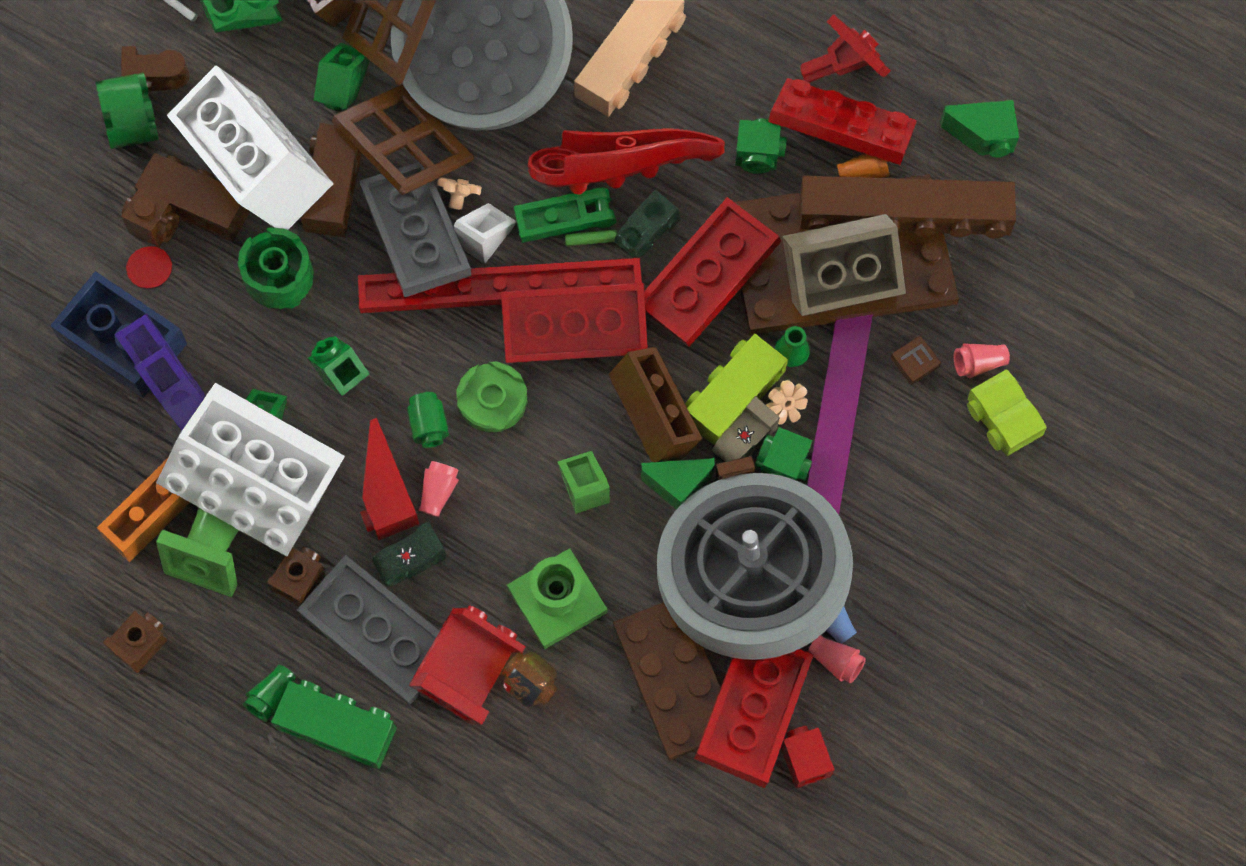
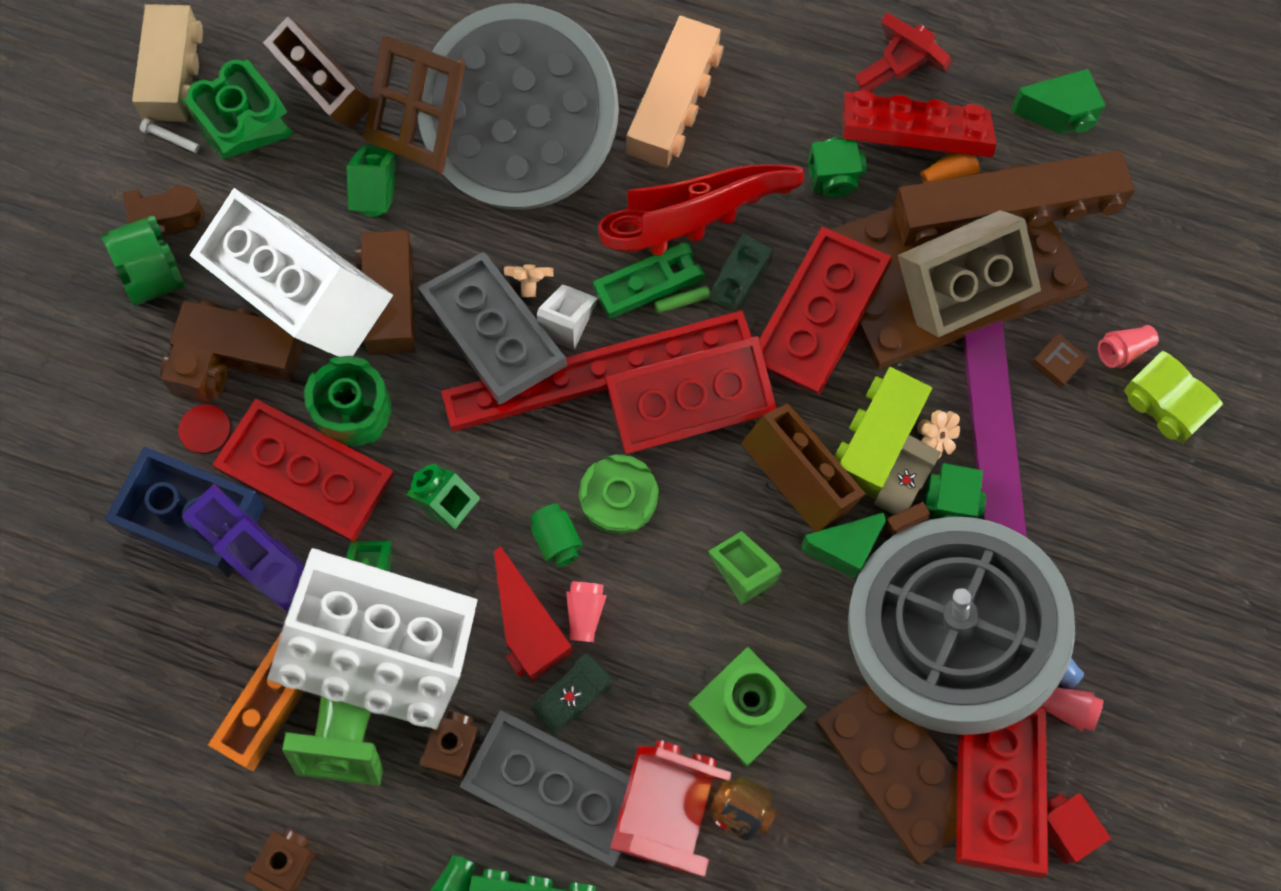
camera: 15 degrees left, 0 degrees up
(226, 320) = (304, 470): none -> red plate
(376, 153) = (433, 252): reddish brown window -> none
(794, 346) = (931, 370): green cone -> none

